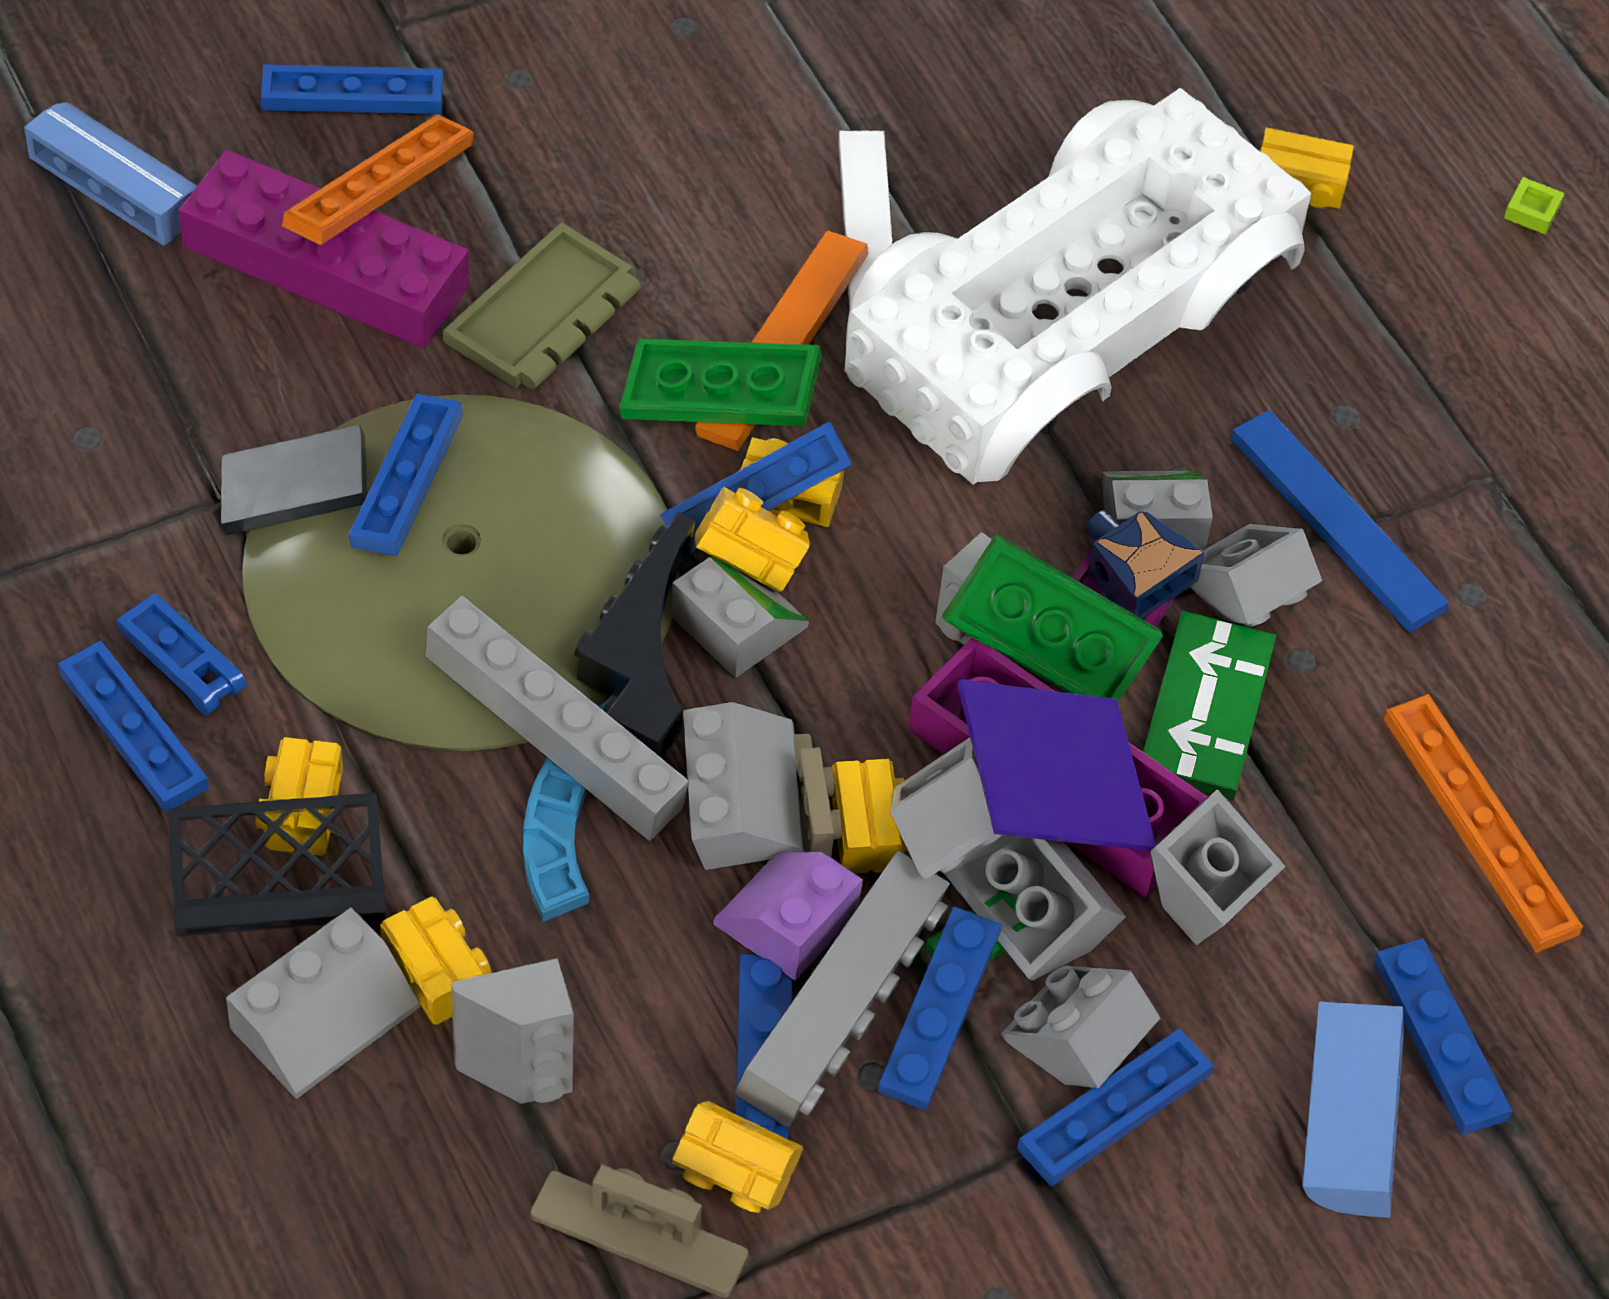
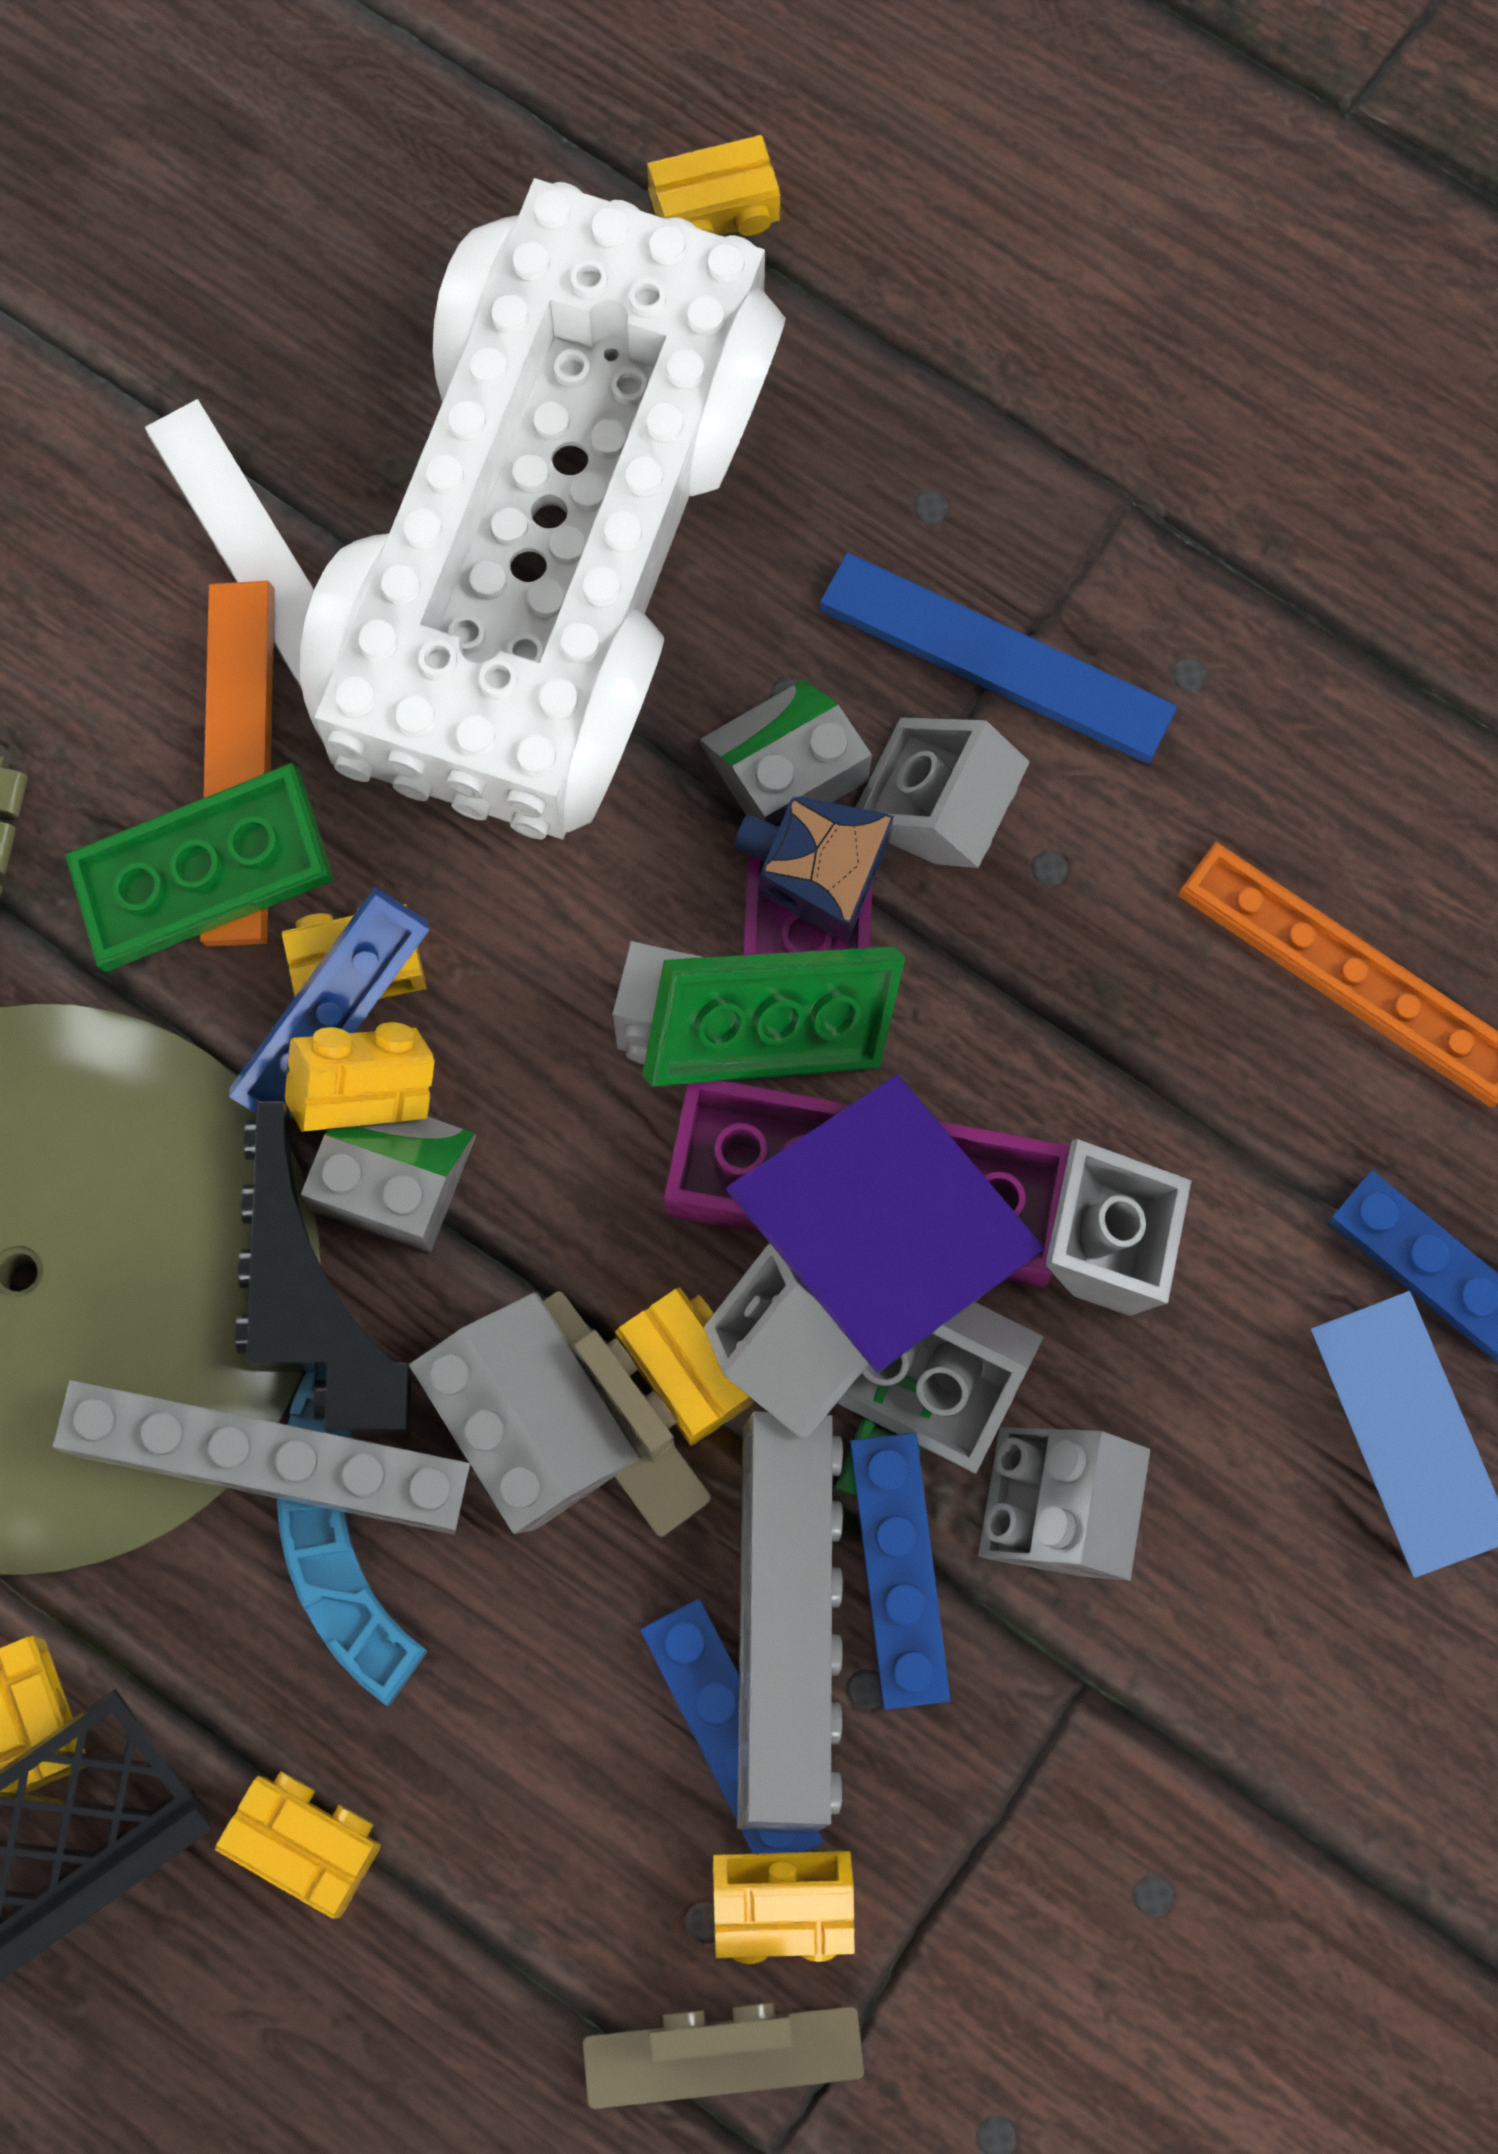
camera: 25 degrees left, 20 degrees up
(321, 1003) = (202, 1983): light grey slope -> none
(516, 1031) = (464, 1919): light grey slope -> none
(792, 909) = (667, 1550): medium lavender slope -> none
(1115, 1107) = (1162, 1576): blue plate -> none
(1209, 702) = (981, 991): green tile -> none
(1534, 205) = (999, 102): lime plate -> none

